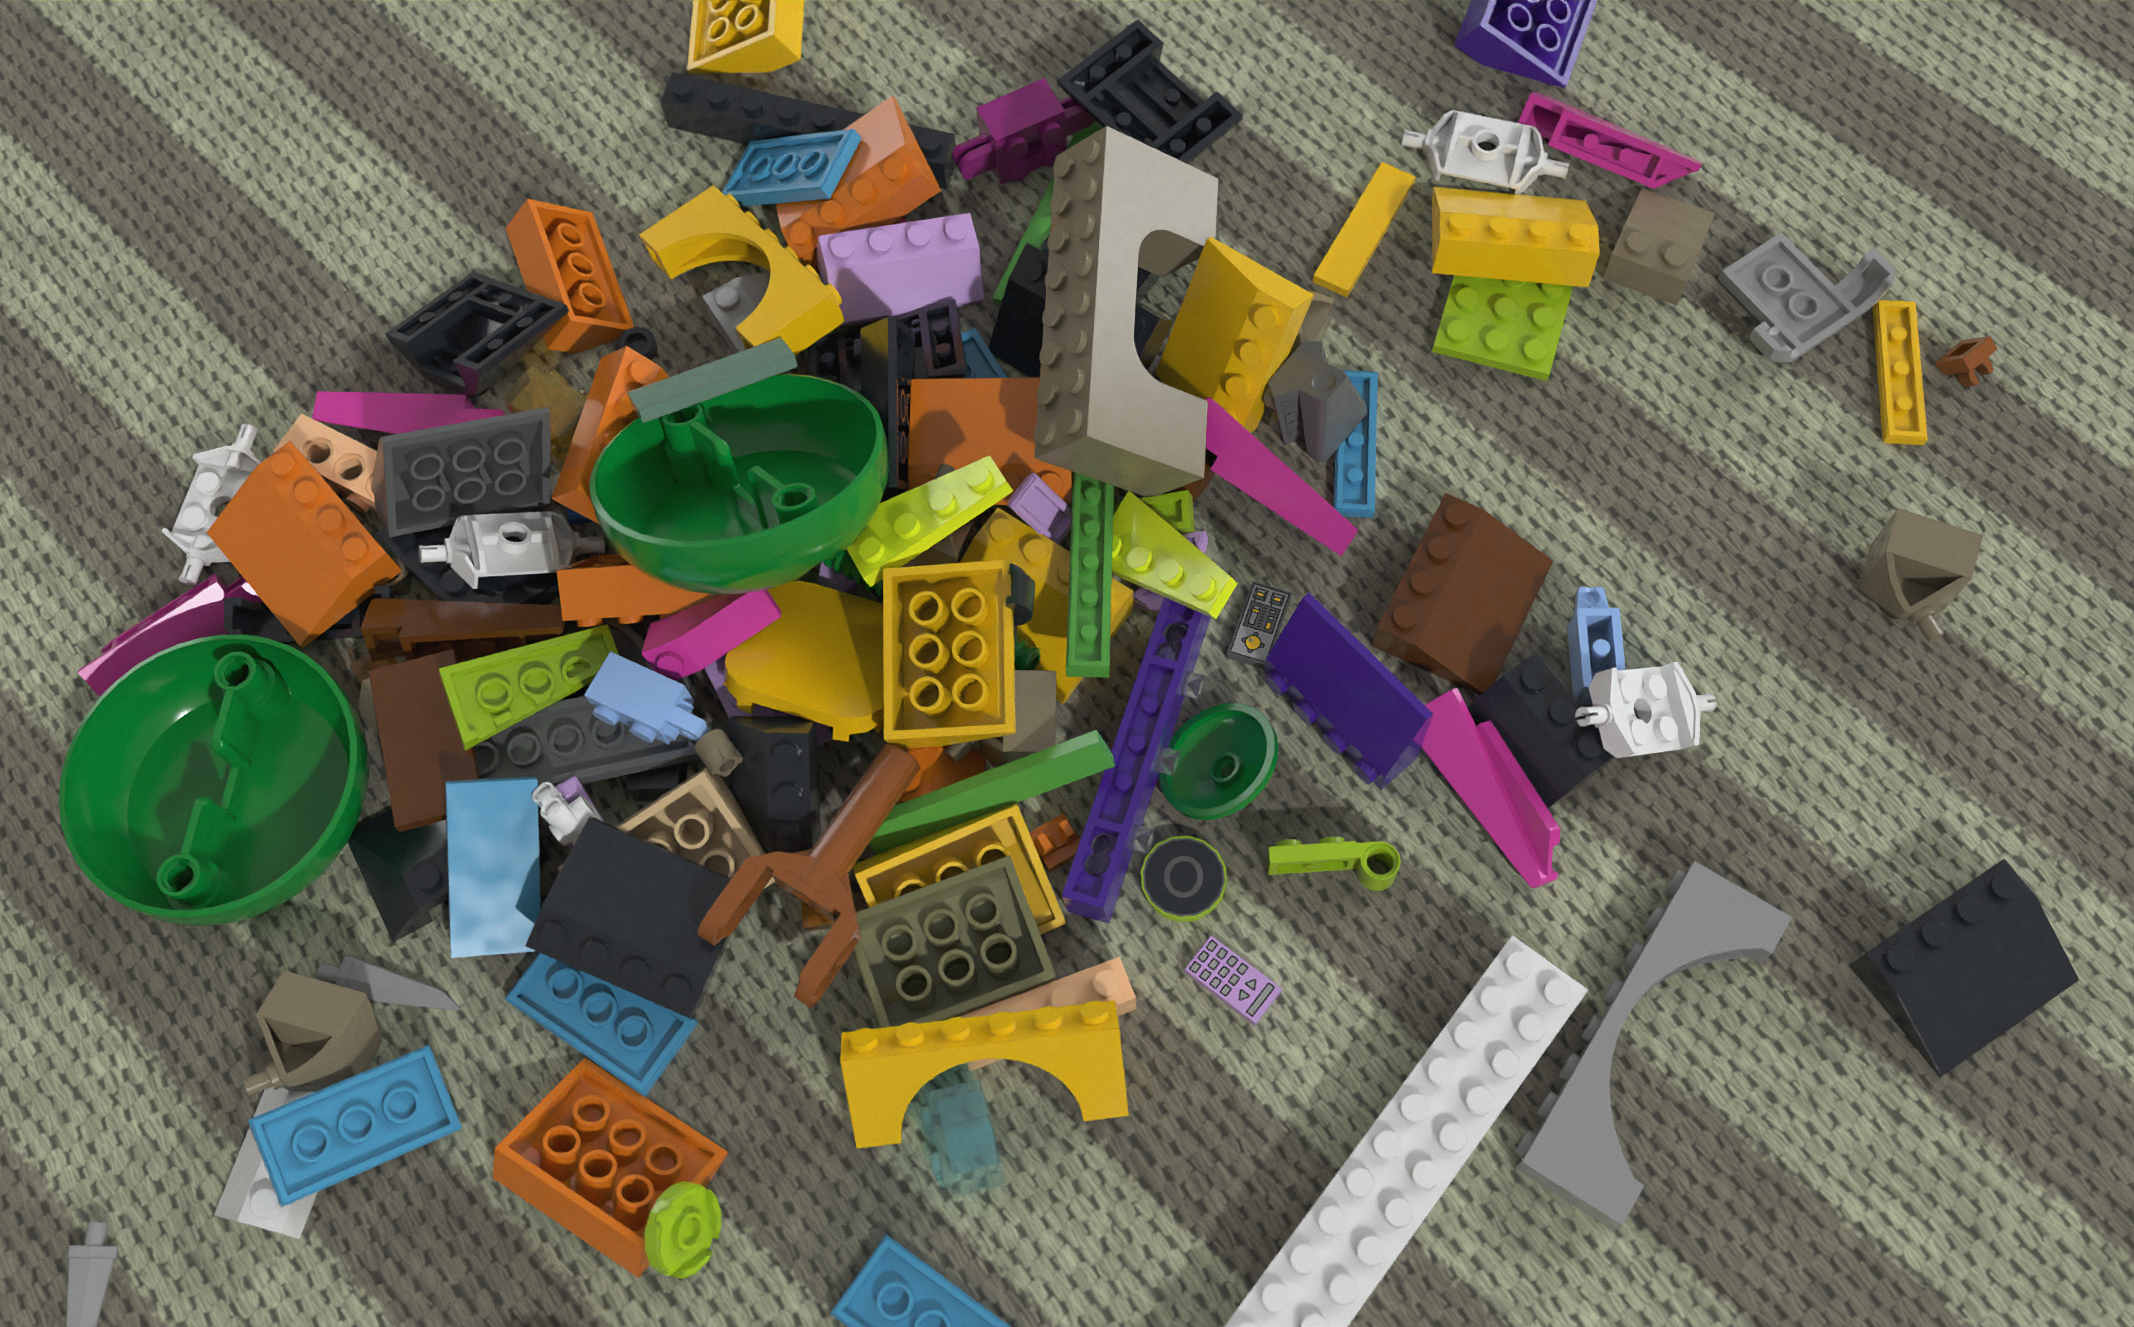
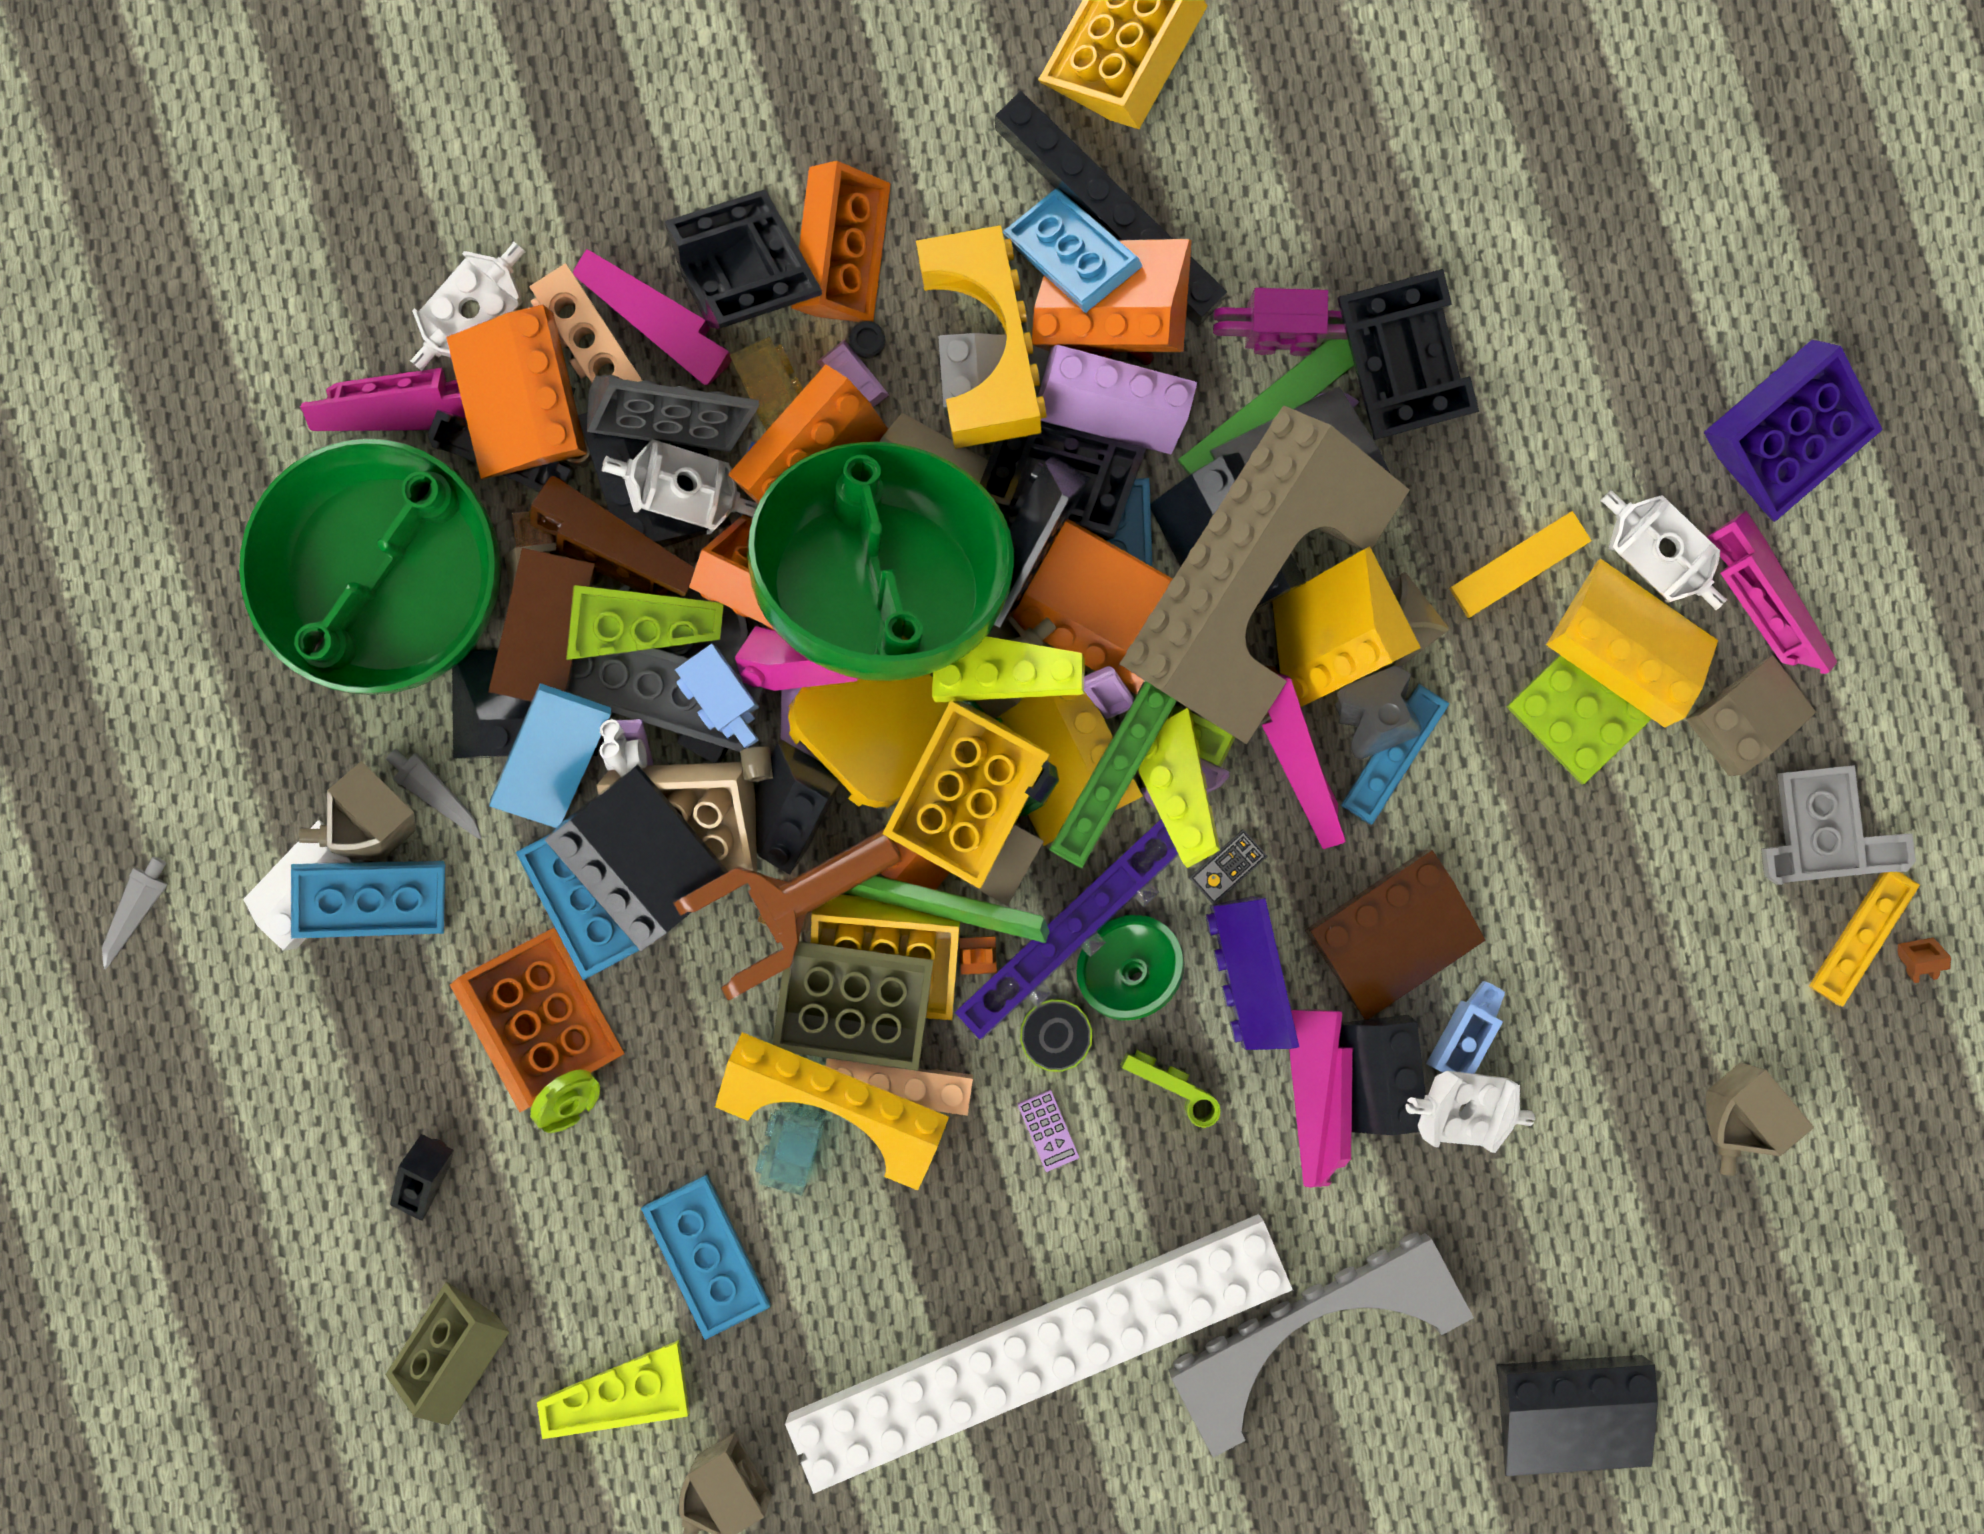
camera: 25 degrees right, 20 degrees up
(712, 380) = (902, 447): sand green tile -> none

